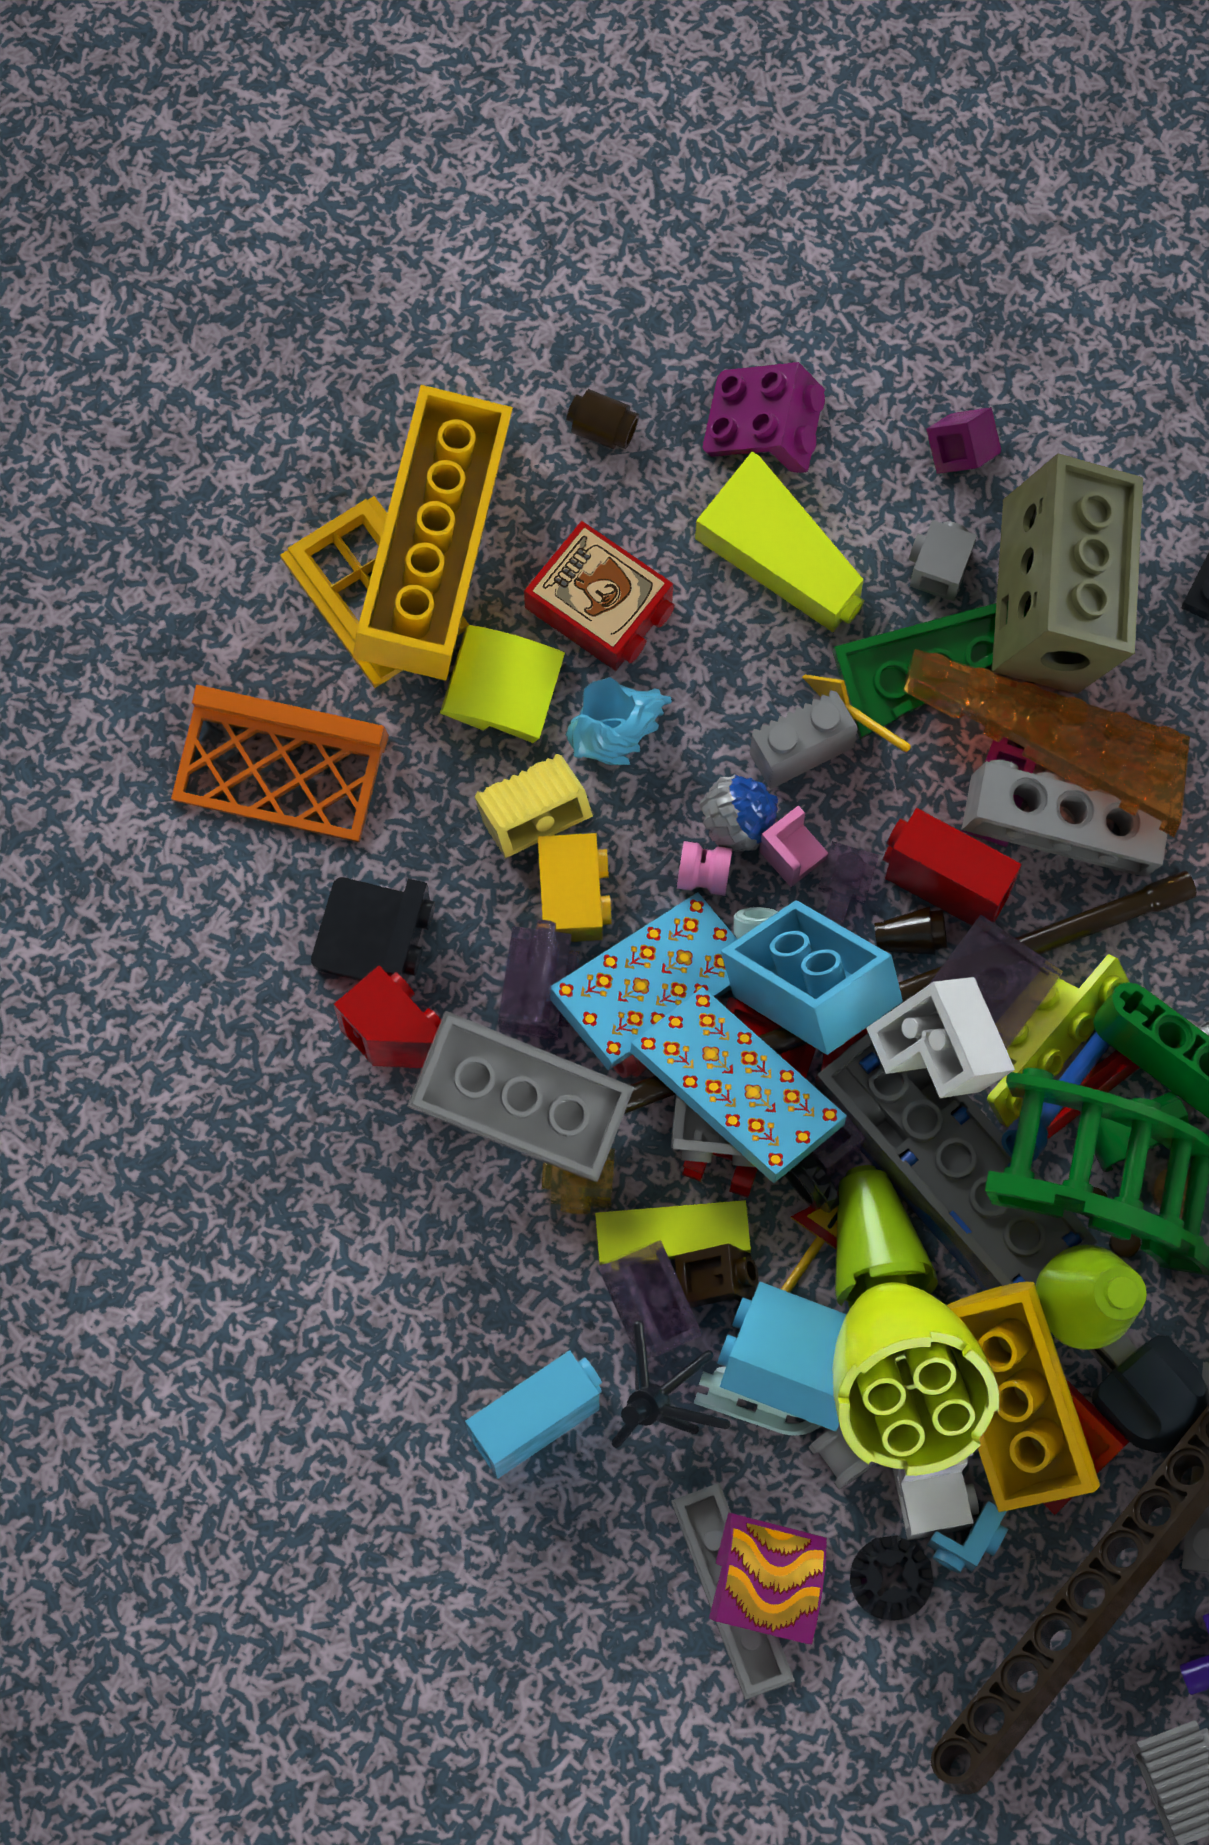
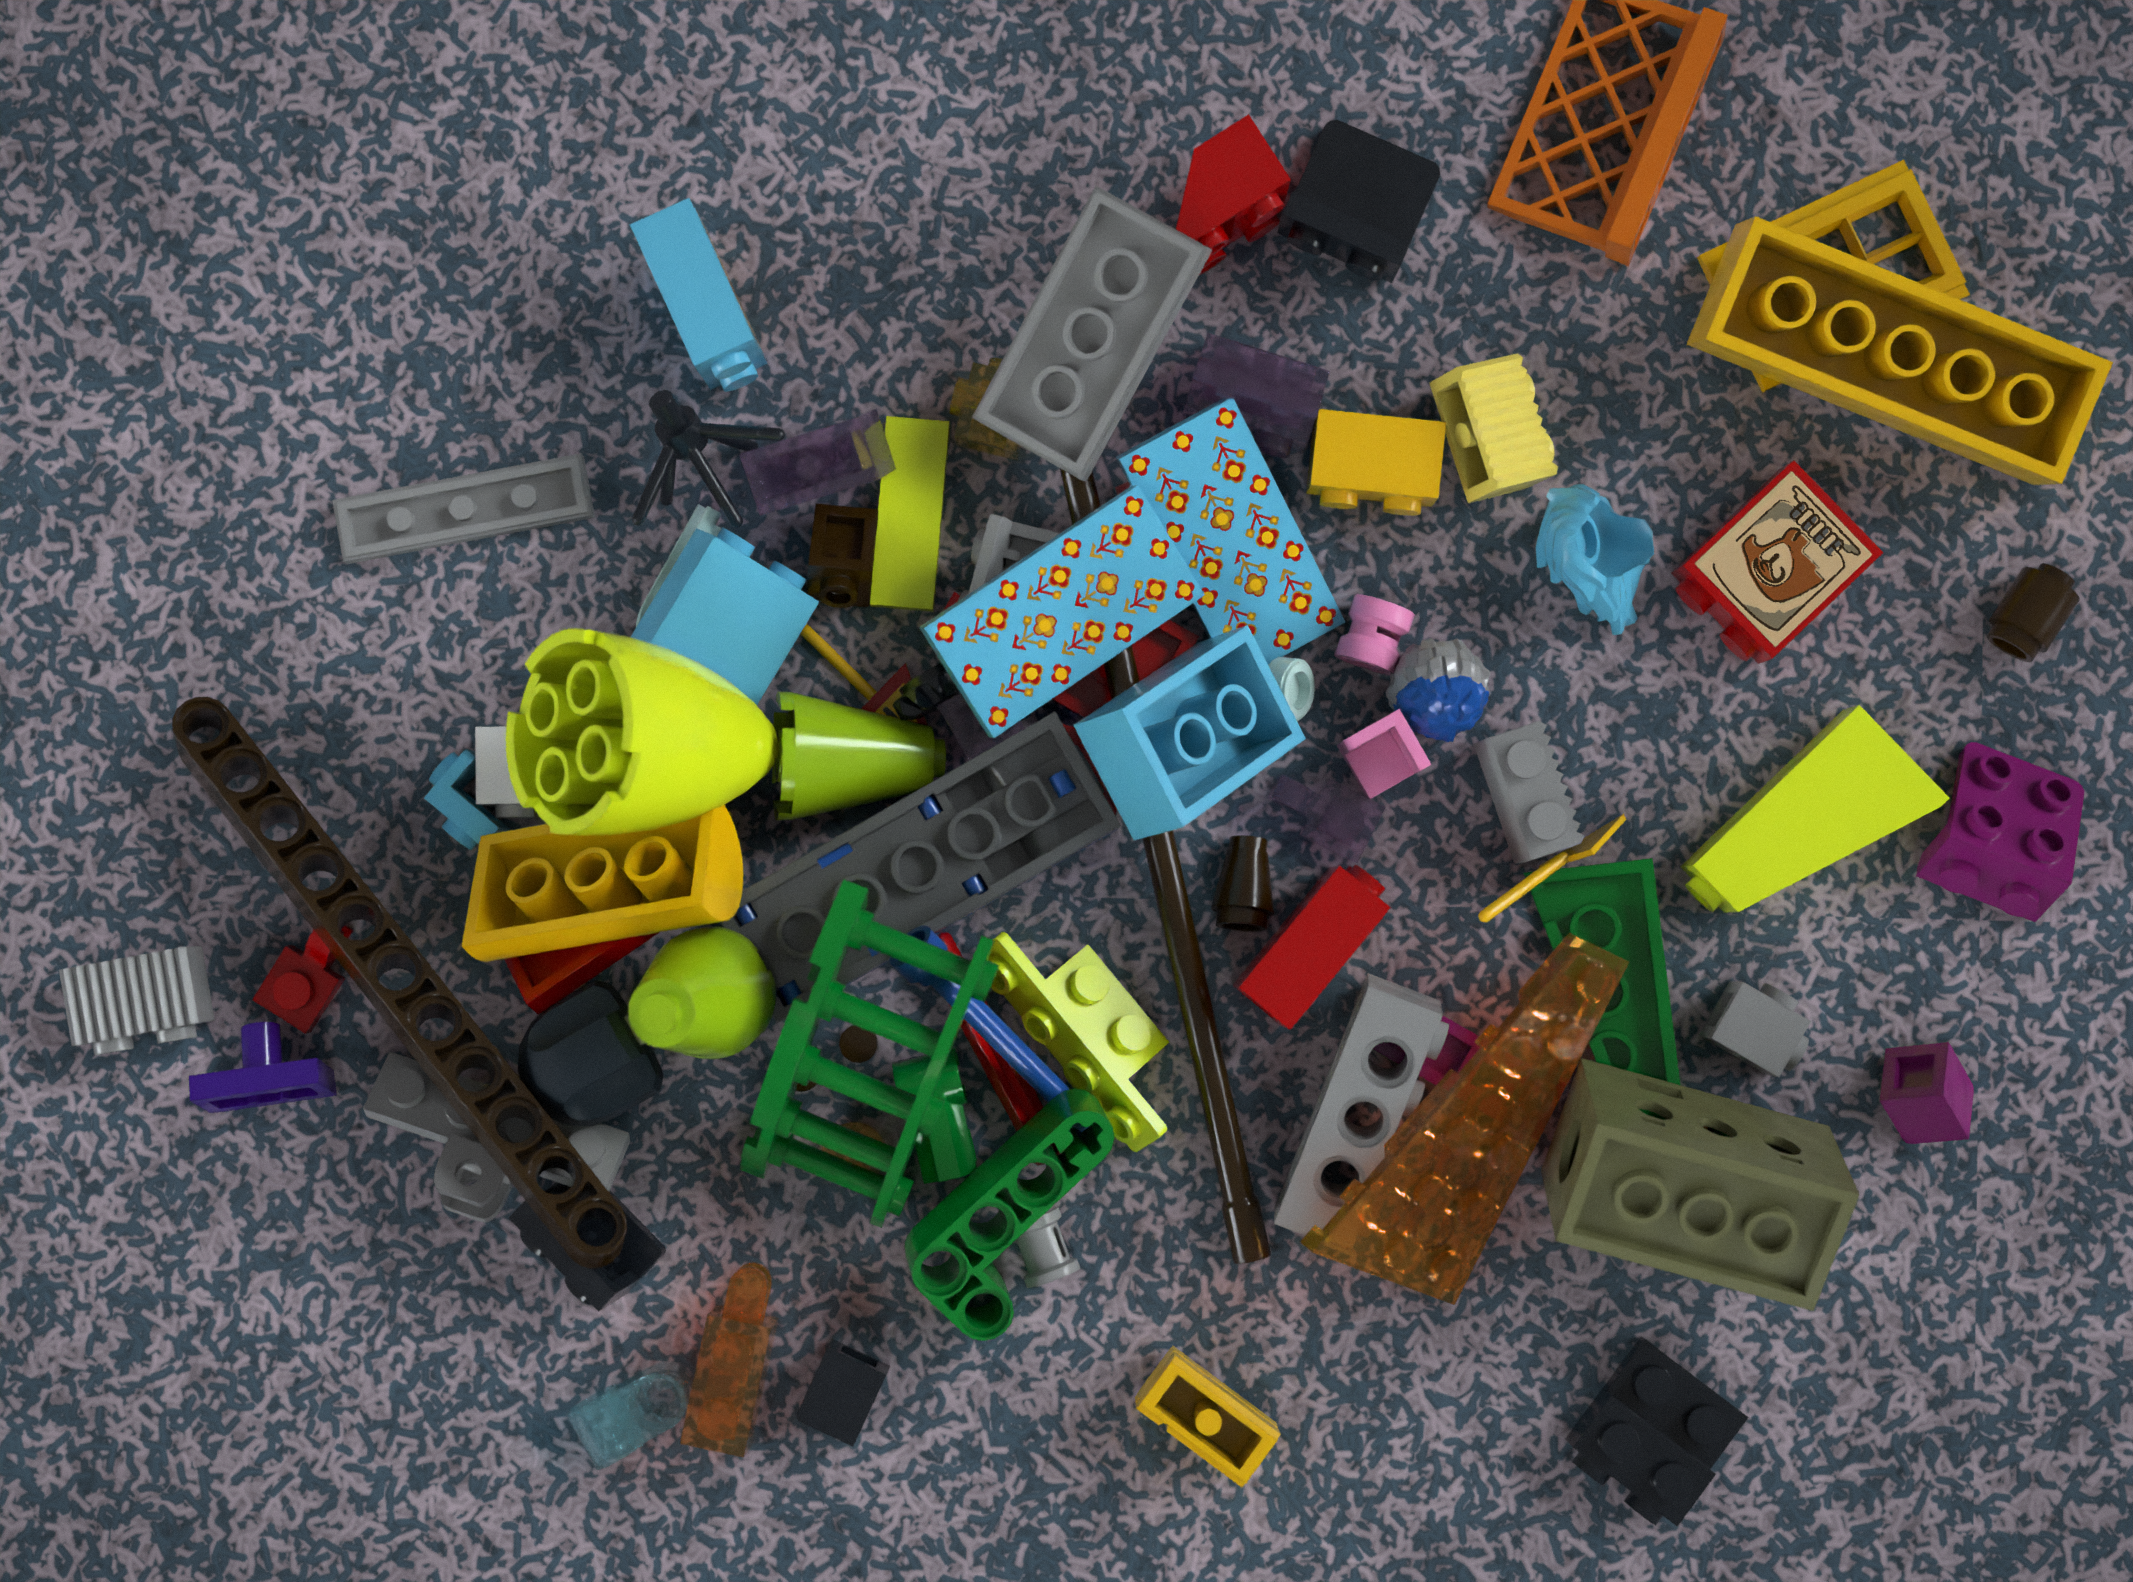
camera: 105 degrees right, 15 degrees up
(502, 682) = (1673, 418): neon yellow slope -> none
(769, 1578) = (460, 549): slope -> none
(866, 1579) = (473, 701): black gear -> none
(947, 1033) = (1051, 876): white brick -> none
(1007, 973) = (1147, 966): clear purple tile -> none
(1143, 1652) = (301, 983): none -> red plate

